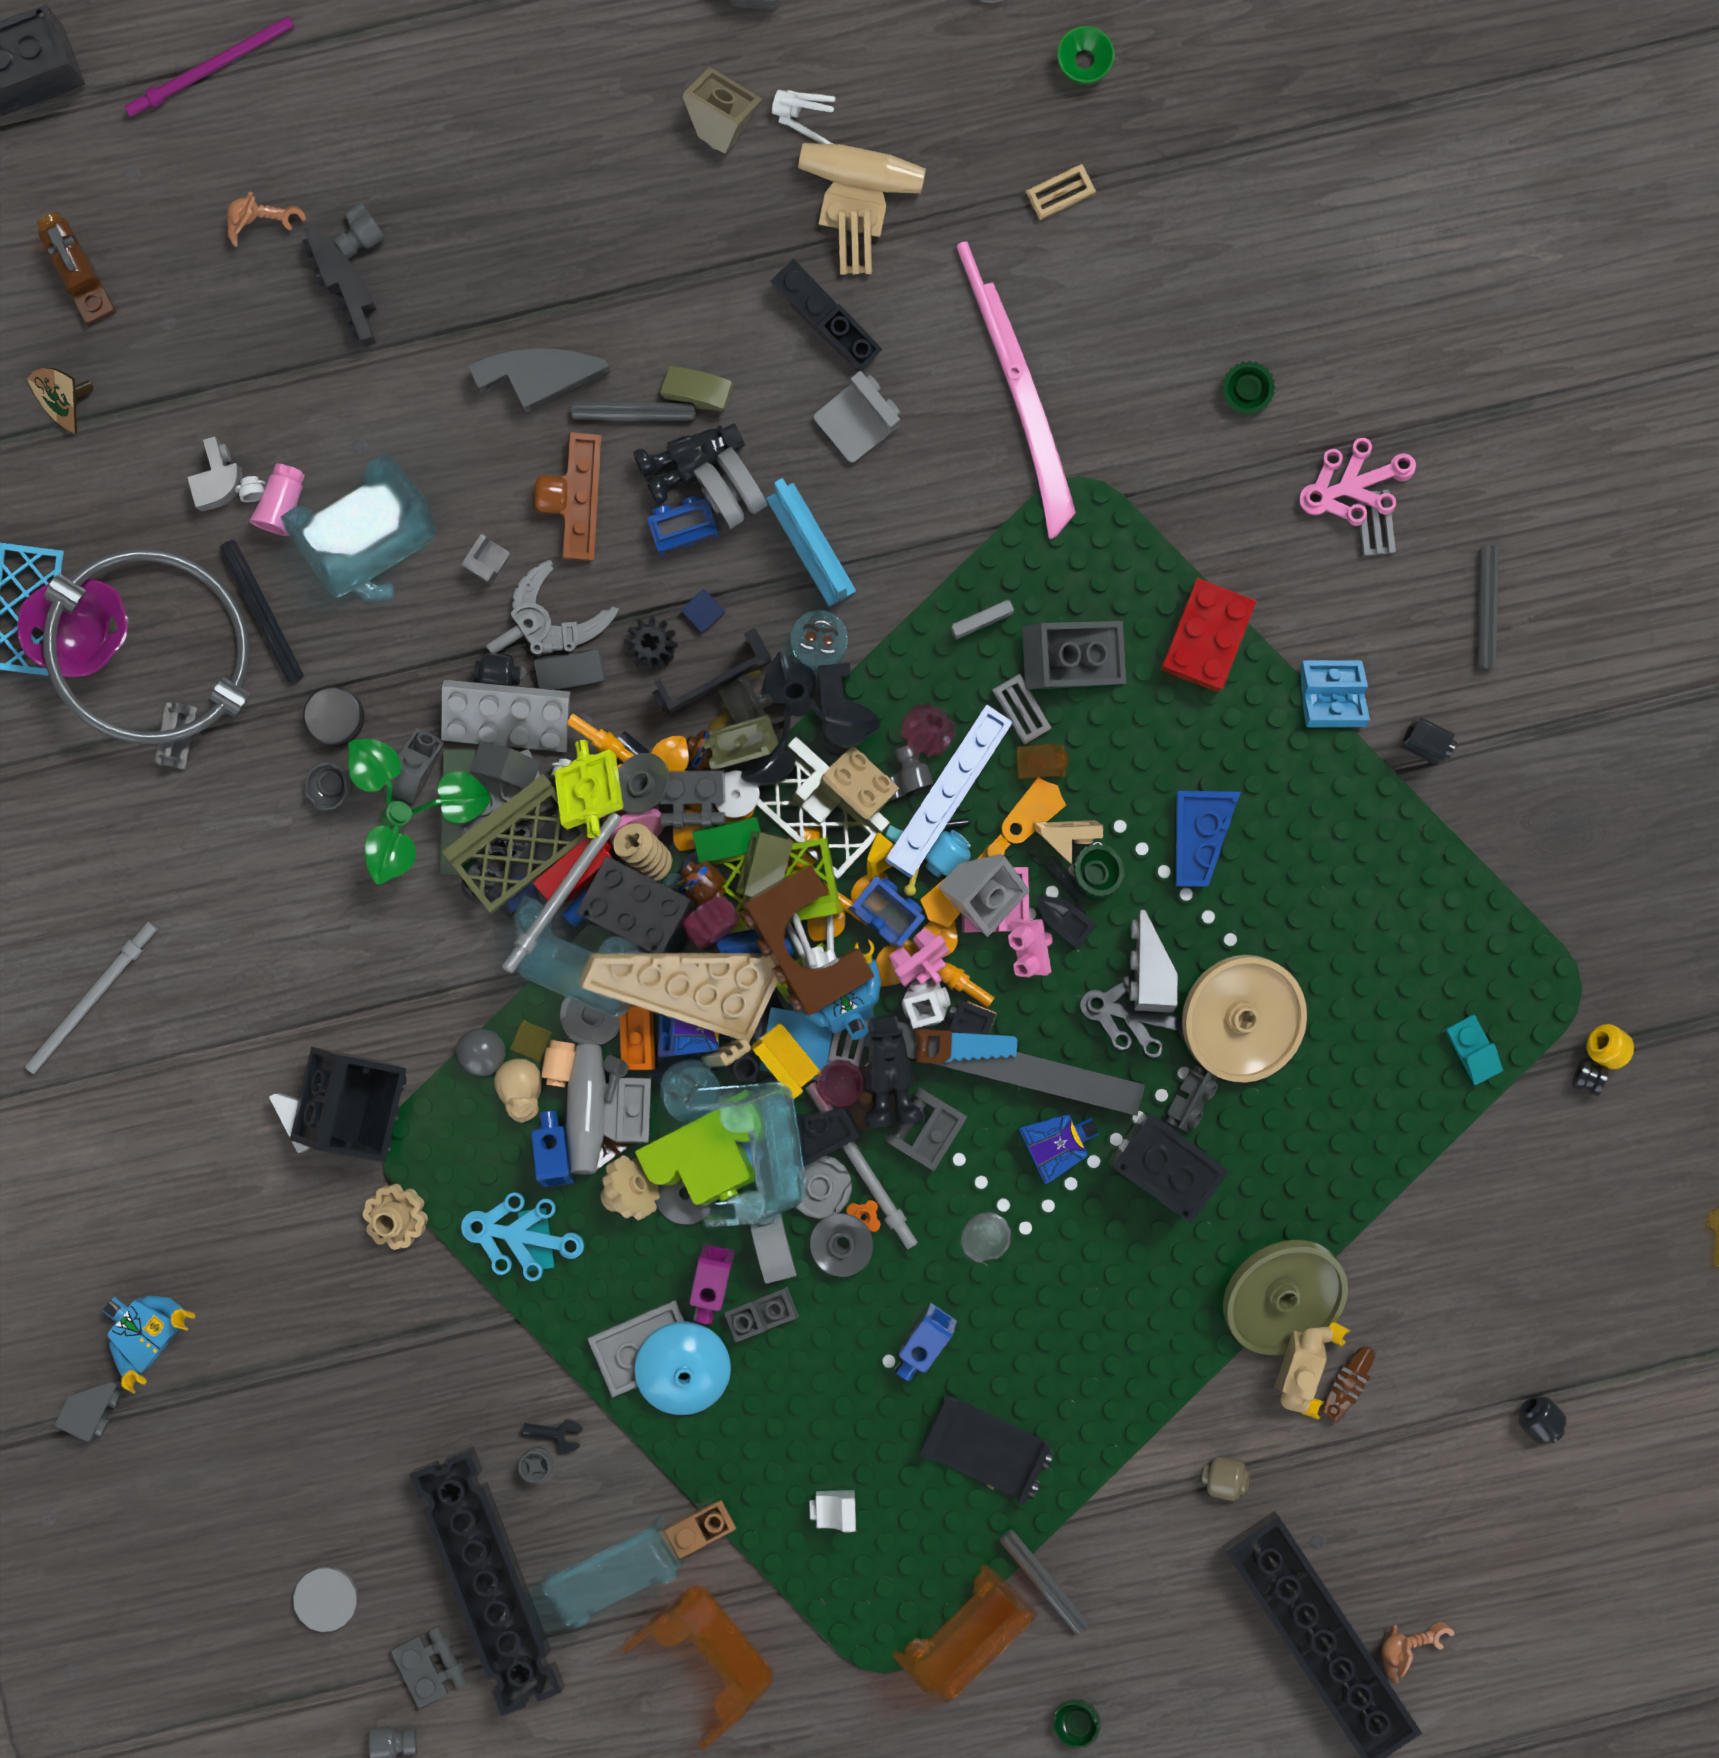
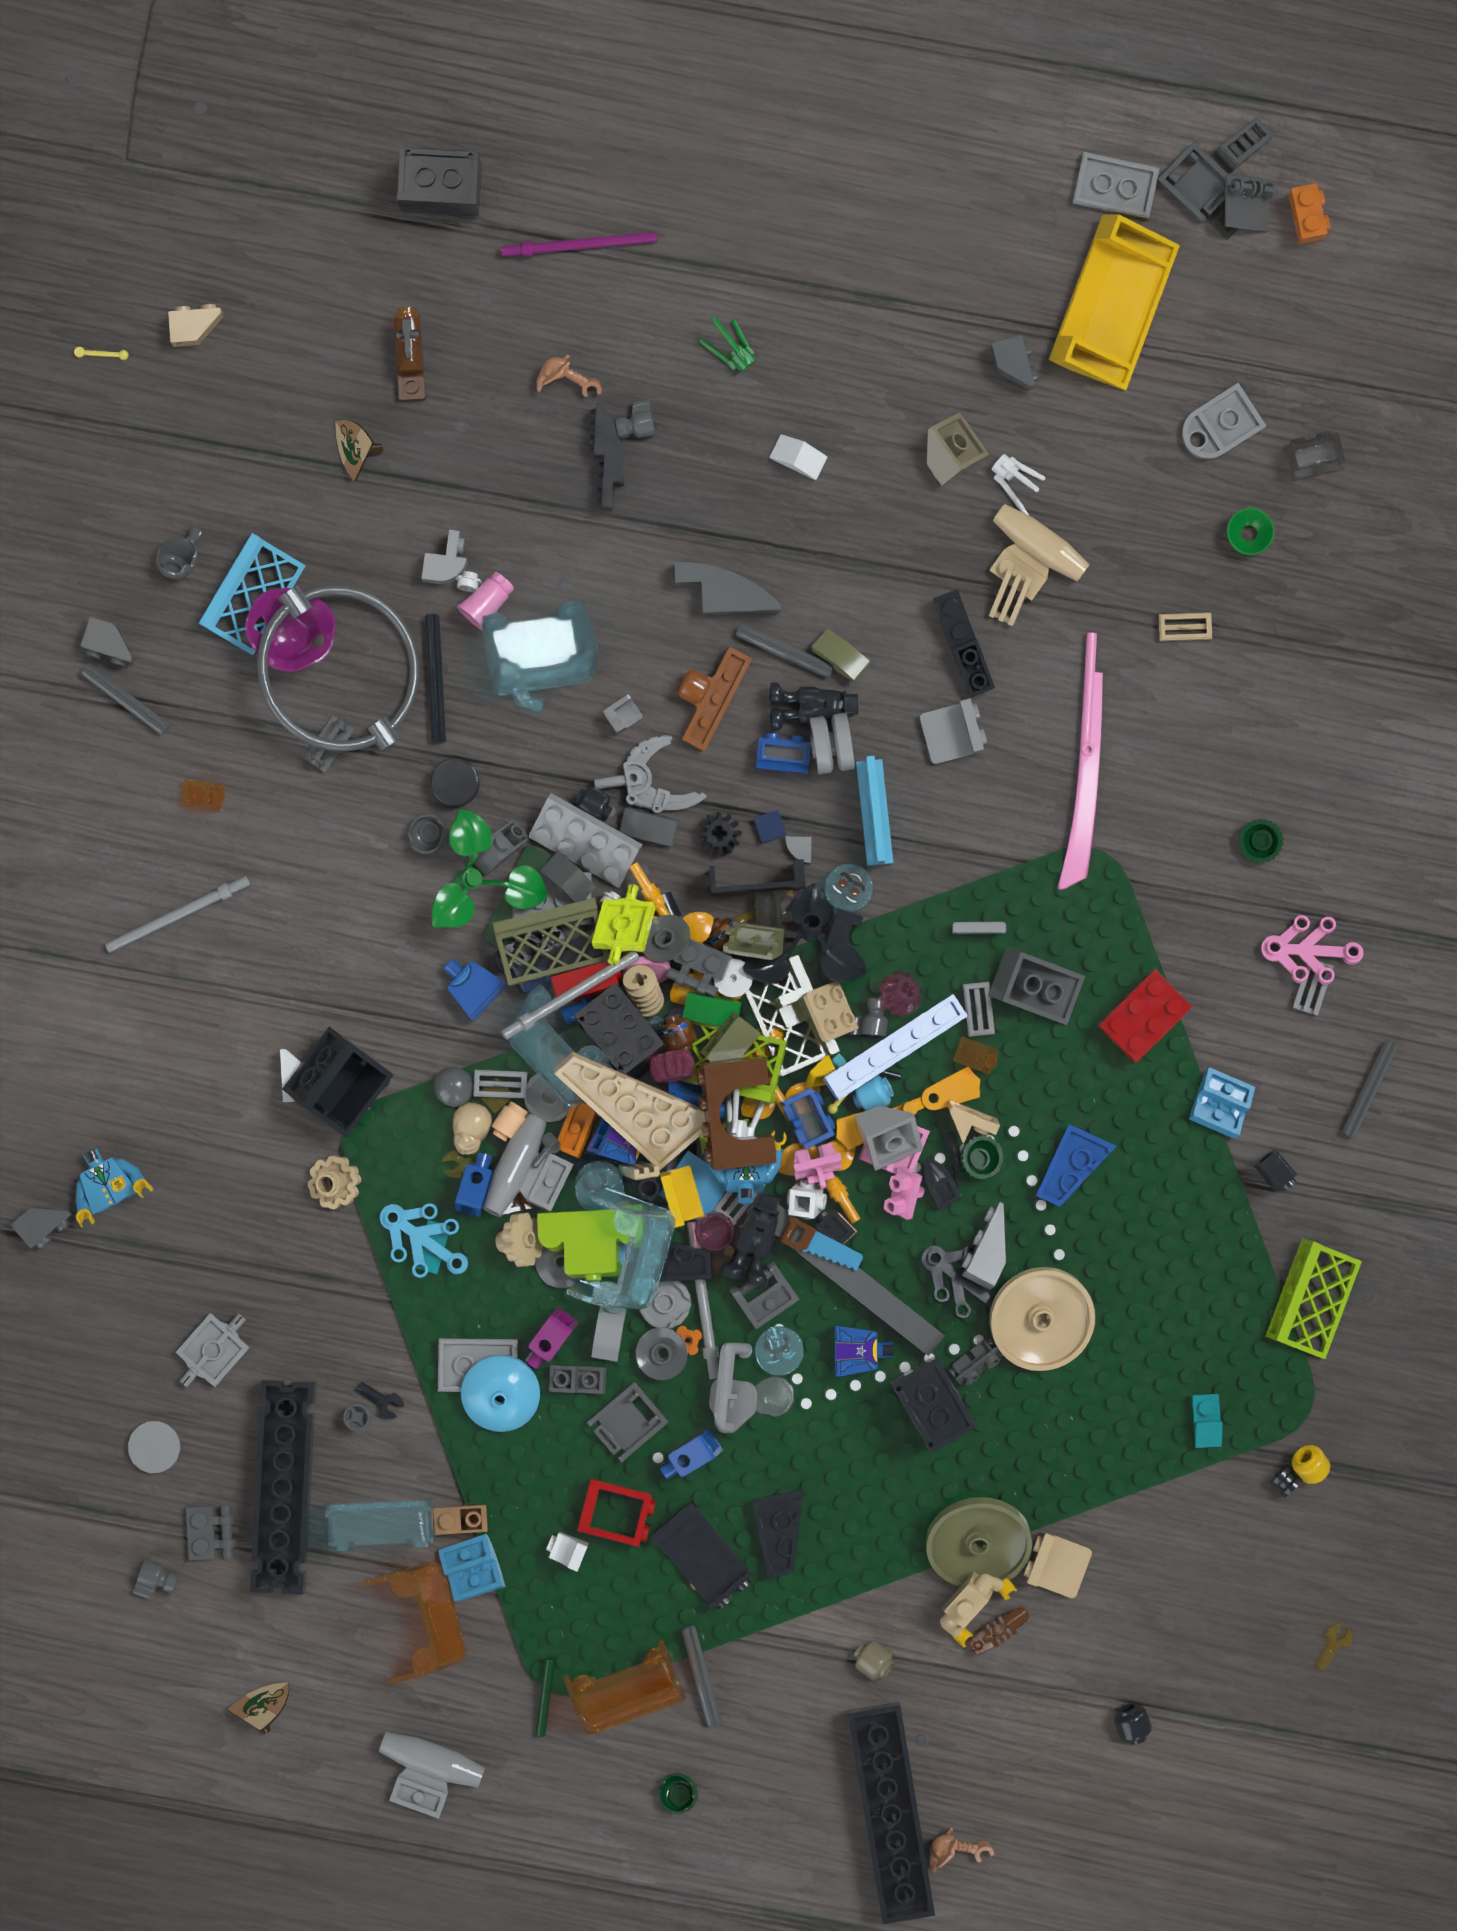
camera: 30 degrees right, 0 degrees up
(60, 853) = (202, 794): none -> clear orange bracket
(342, 1462) = (212, 1350): none -> light grey plate
(442, 109) = (740, 356): none -> green plant
(454, 932) = (473, 987): none -> blue torso
(506, 1035) = (523, 1084): none -> light grey tile
(520, 1129) = (463, 1162): none -> clear yellow bar
(554, 192) = (798, 456): none -> white slope
(737, 1576) = (471, 1568): none -> dark azure slope
(746, 619) = (799, 847): none -> light grey tile
(836, 1342) = (624, 1424): none -> dark grey container
(836, 1446) = (589, 1505): none -> red window
(881, 1682) = (545, 1694): none -> dark green bar
(942, 1260) = (732, 1399): none -> light grey piece
(970, 1183) = (779, 1350): none -> clear light blue head
(1056, 1380) = (778, 1530): none -> black wing
(1381, 1282) = (1057, 1565): none -> tan bracket
(1510, 863) = (1293, 1296): none -> lime fence

